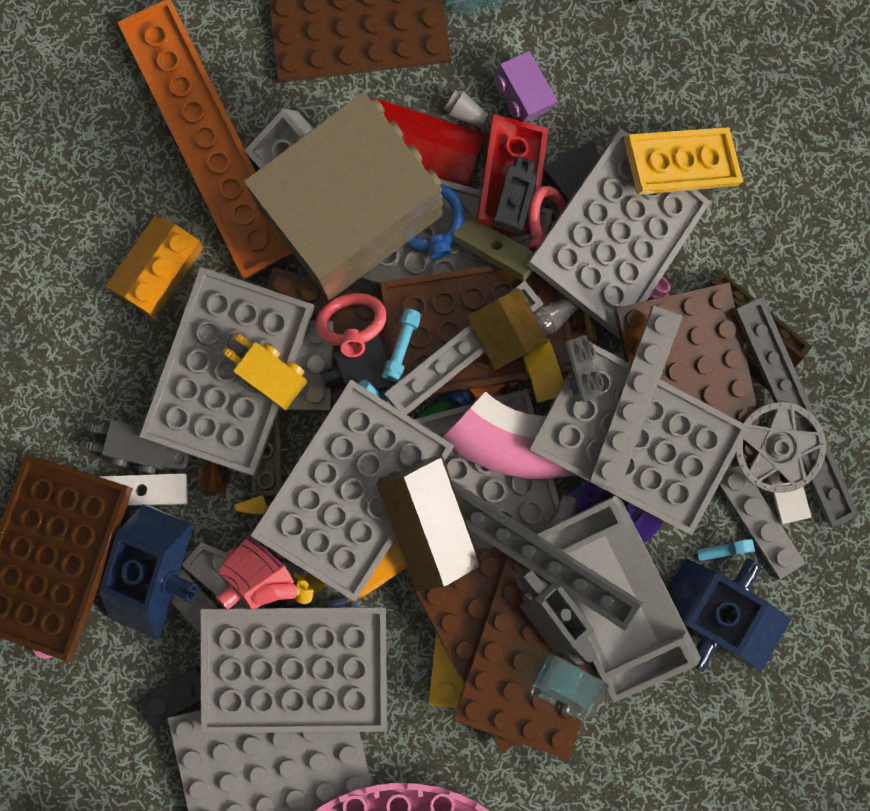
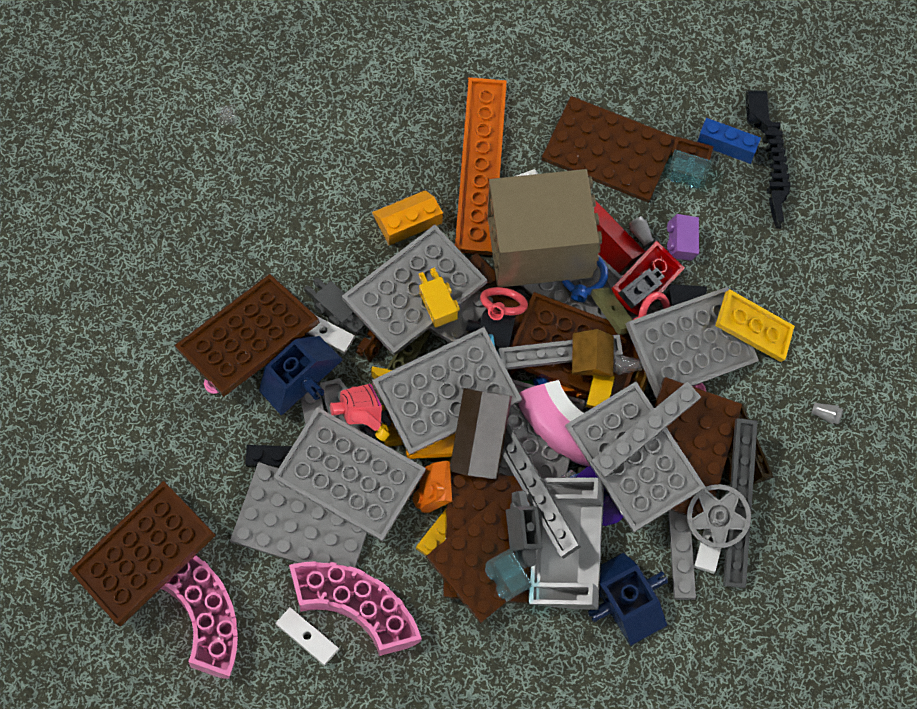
camera: 25 degrees right, 15 degrees down
(393, 368) = (536, 321): medium azure bar -> none
(408, 620) = (434, 487): none -> orange slope
(588, 380) = (625, 385): dark grey hinge -> none
(734, 548) = (659, 563): medium azure bar -> none
(833, 221) = (828, 412): none -> light grey cone

